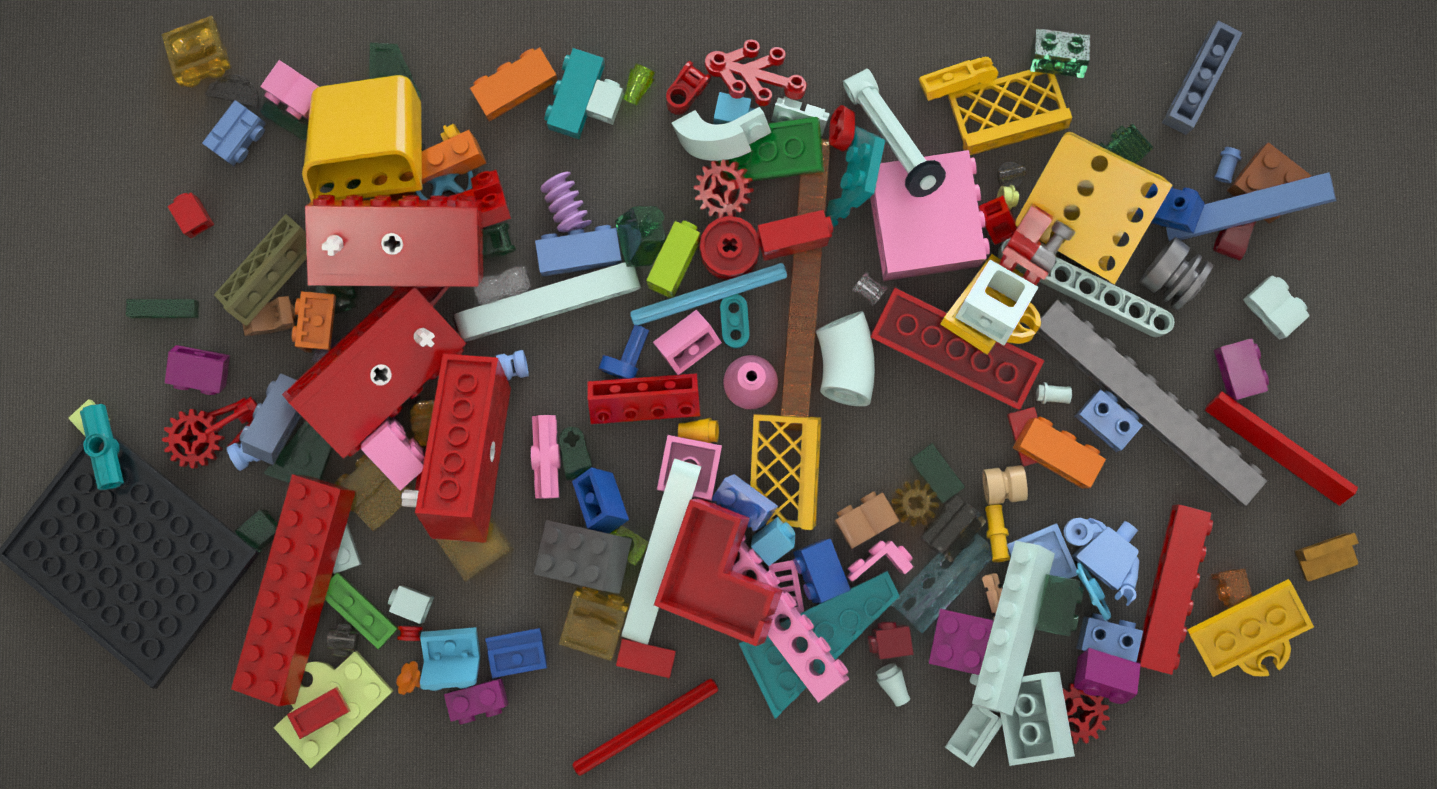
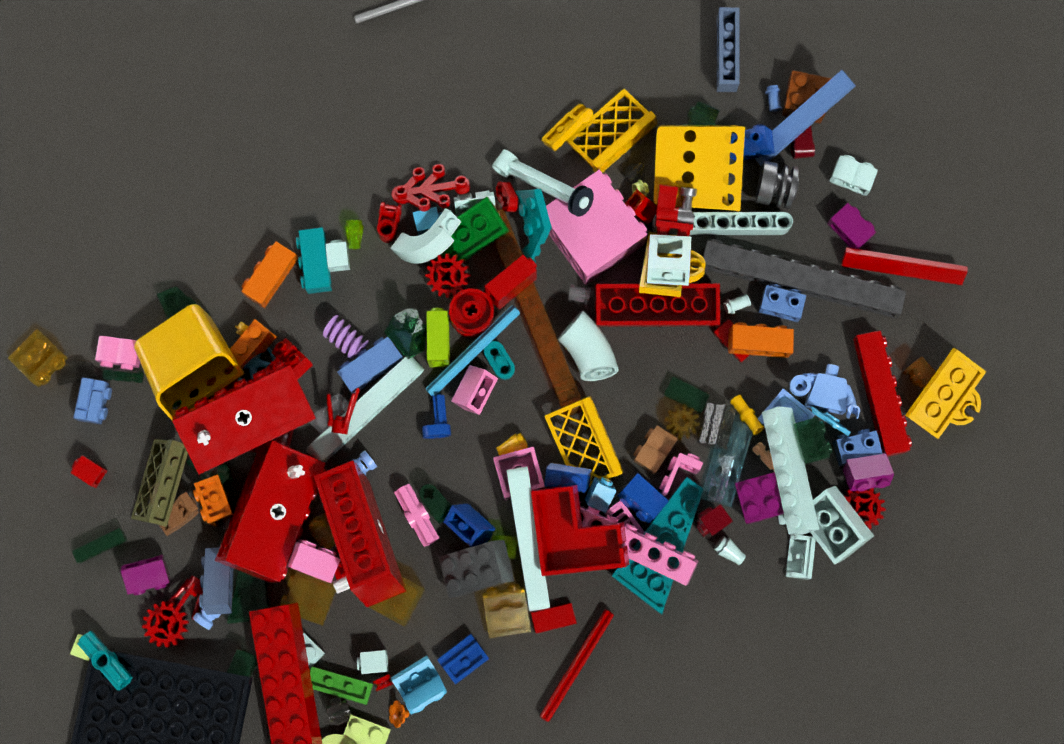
camera: 30 degrees left, 5 degrees down
(476, 699) = (454, 702): magenta brick -> none
(491, 242) = (309, 390): clear green piece -> none
(508, 305) = (341, 423): none -> red plant
(643, 398) = (464, 442): red brick -> none
(750, 393) = (530, 403): bright pink cone -> none
(1005, 484) = (737, 378): tan wheel -> none
(1060, 53) = (626, 78): clear green brick -> none
(1327, 556) = (971, 322): pearl gold panel -> none

